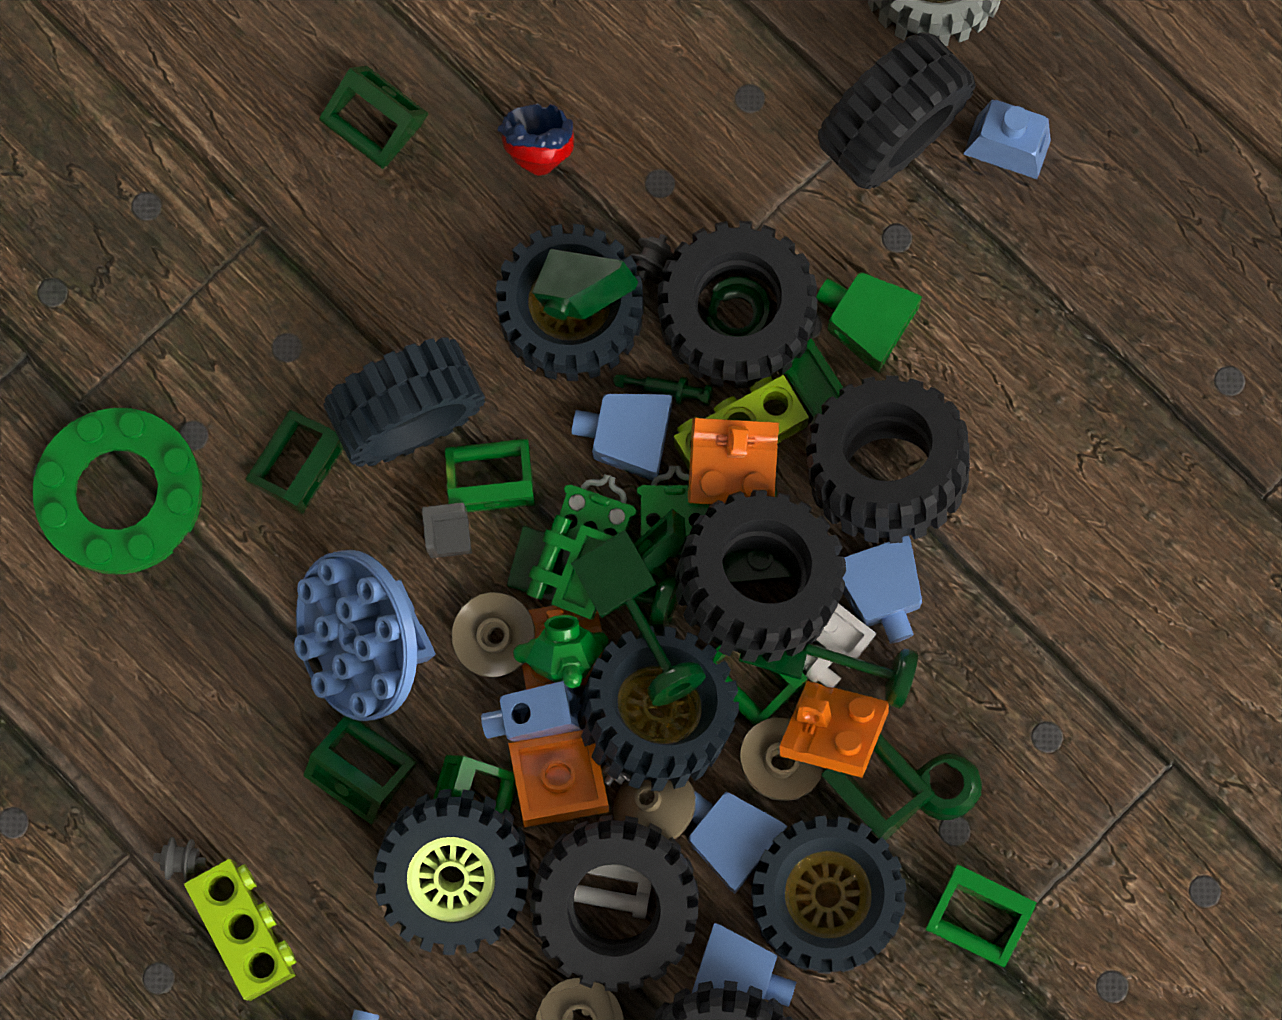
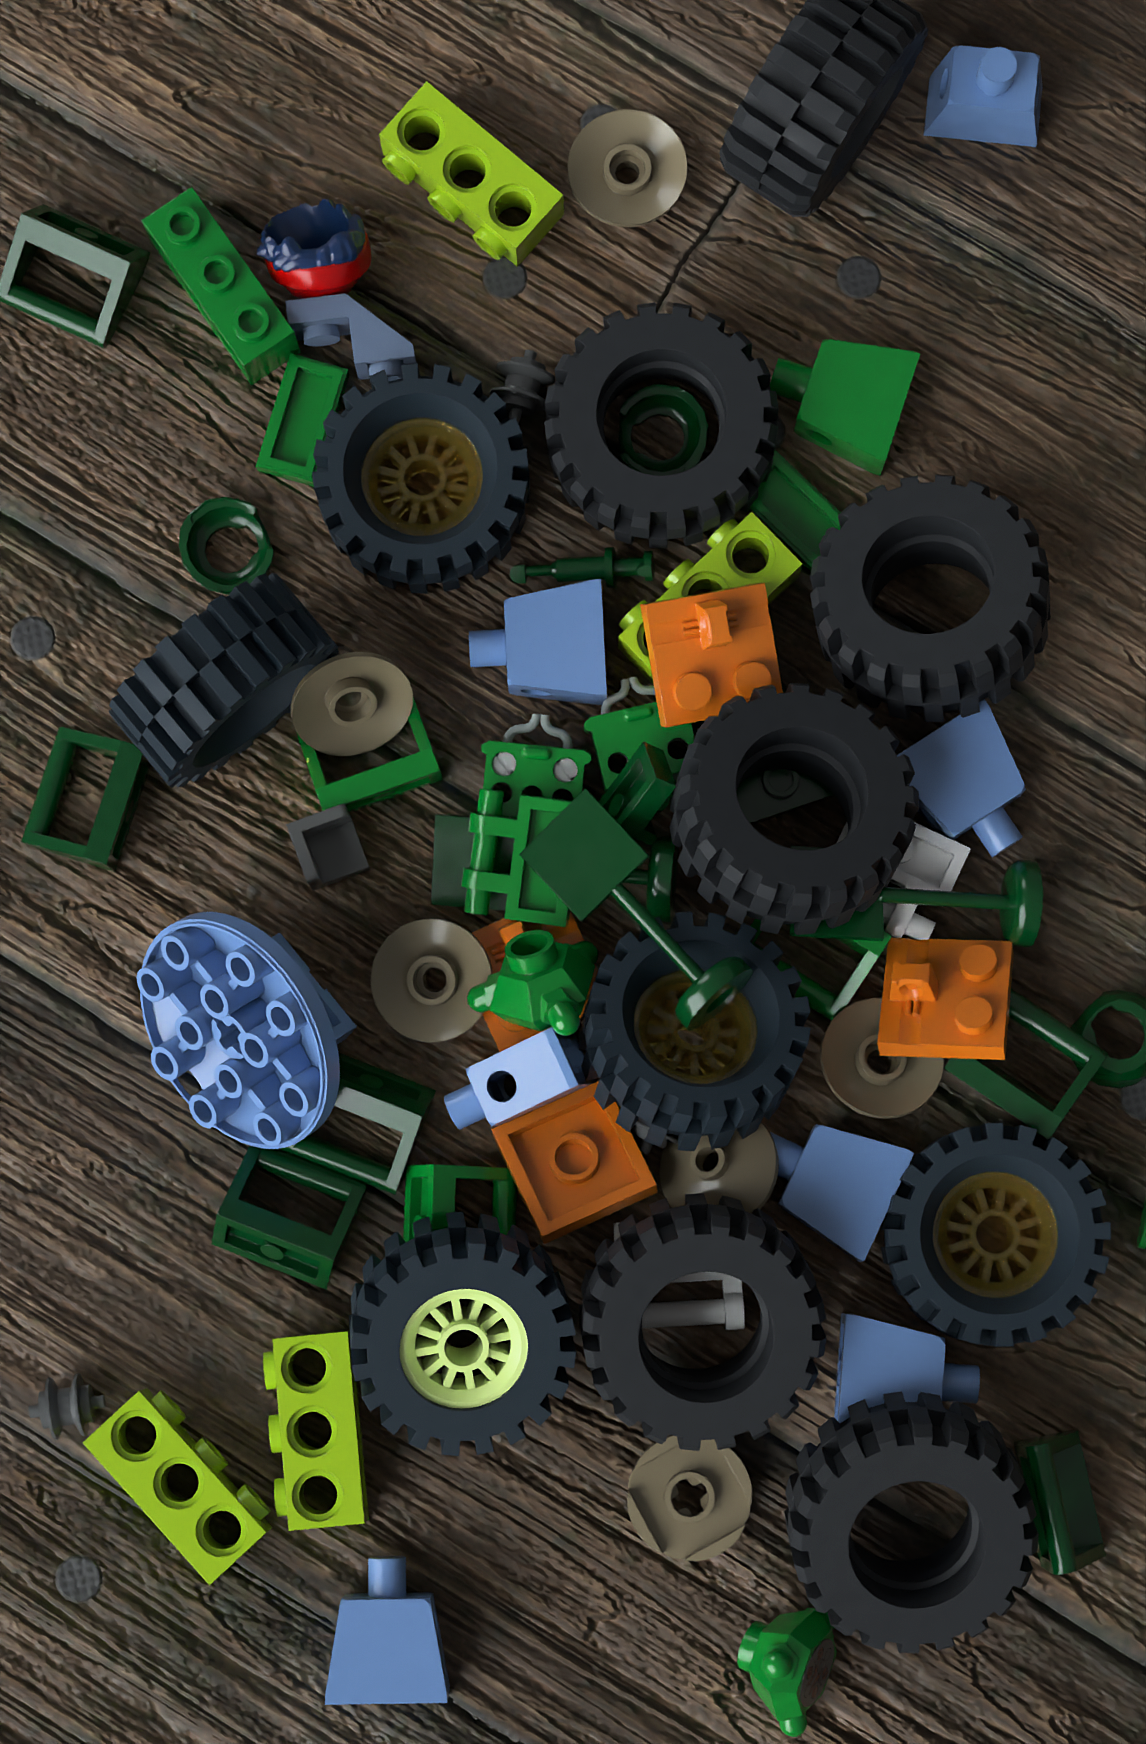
camera: 15 degrees left, 5 degrees up
(353, 936) = (342, 1456): none -> lime brick
(424, 296) = (206, 521): none -> dark green piece
(438, 704) = (384, 1100): none -> dark green tile
(469, 145) = (221, 285): none -> green brick
(487, 451) = (356, 721): none -> dark tan dish
(503, 234) = (302, 404): none -> green tile
(560, 206) = (374, 343): none -> sand blue slope
(581, 284) = (434, 450): dark green slope -> none
(654, 92) = (463, 147): none -> lime brick
(758, 112) = (627, 141): none -> dark tan dish

